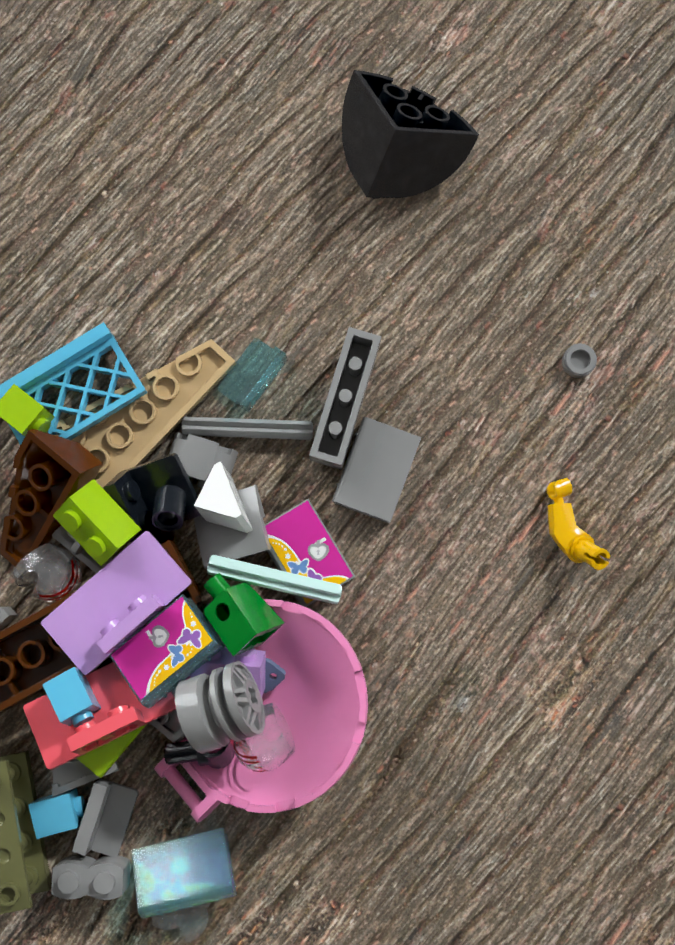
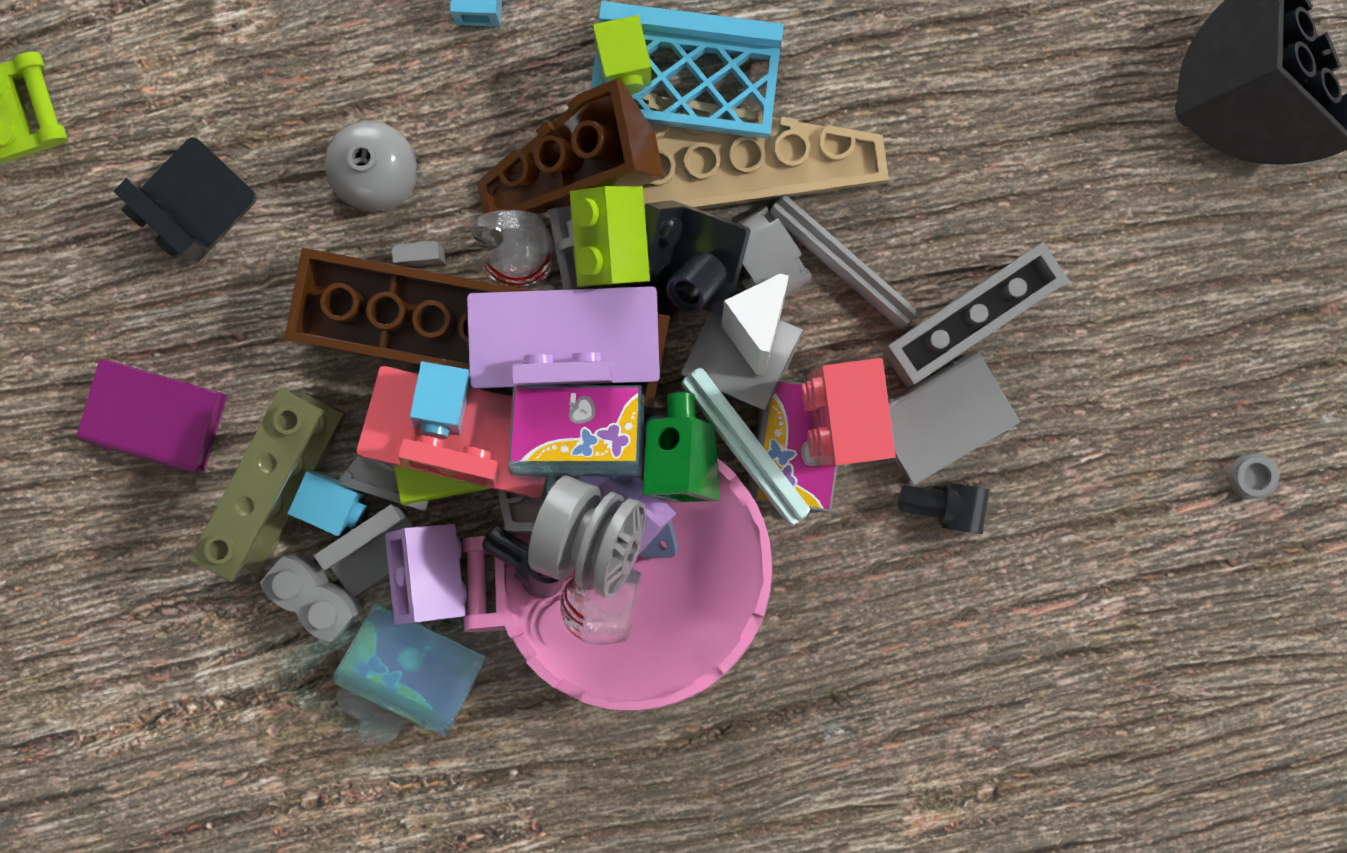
camera: 30 degrees right, 5 degrees up
(147, 807) = (425, 574): none -> lavender brick
(252, 374) = (894, 208): clear light blue panel -> none
(314, 512) = (848, 413): none -> coral brick
(425, 515) = (956, 506): none -> black axle
(567, 535) = (1088, 647): yellow arm -> none

